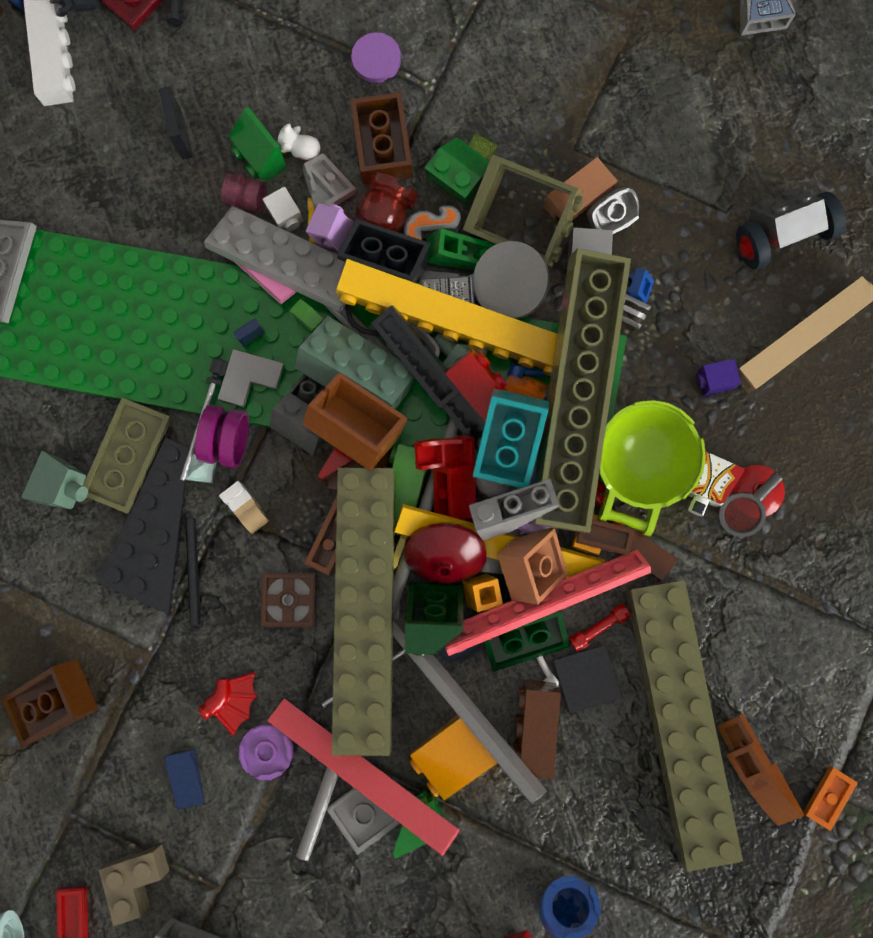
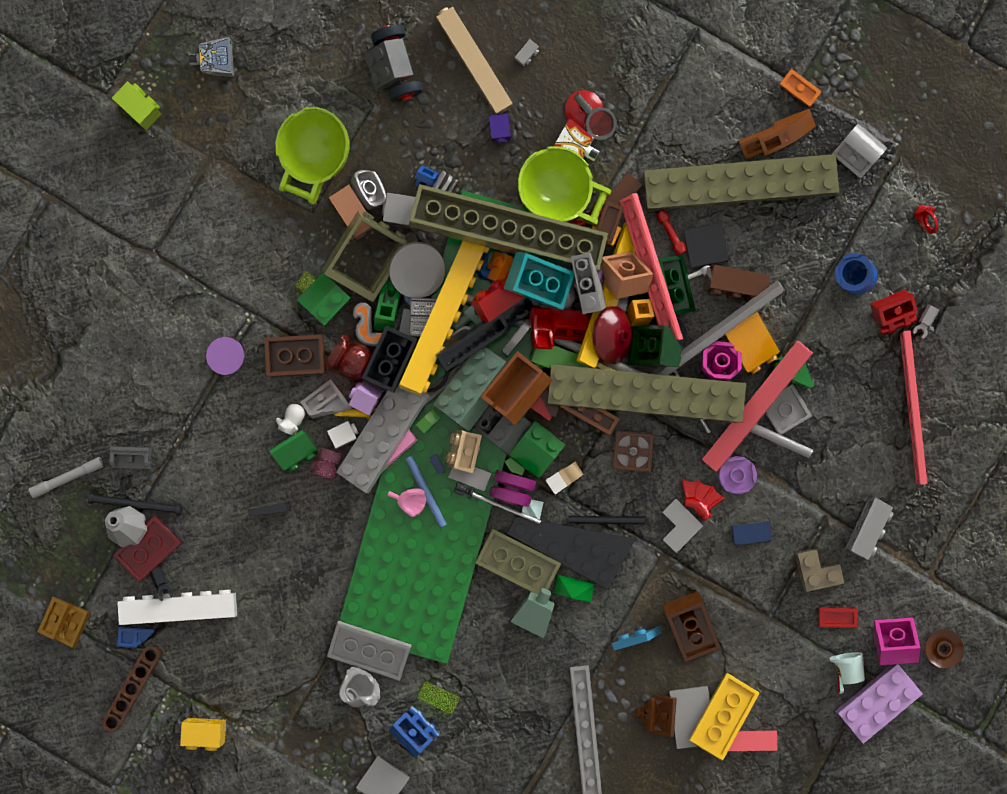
camera: 85 degrees left, 5 degrees up
(26, 627) = (638, 637): none -> dark azure wing
(95, 535) = (574, 588): none -> green slope
(192, 682) = (685, 525): none -> light grey tile
(197, 302) = (411, 501): none -> bright pink piece
(212, 323) = (429, 498): none -> medium blue bar
(258, 440) = (514, 466): none -> bright green piece
(267, 365) = (463, 450): none -> tan bracket
(278, 465) = (536, 450): none -> green slope
(420, 715) = (721, 361): none -> dark pink cone
(431, 421) = (517, 336): none -> light grey tile
(658, 128) = (311, 149): none -> lime windscreen
(750, 896) = (859, 150): none -> light grey brick
(826, 405) = (526, 53): none -> light grey piece

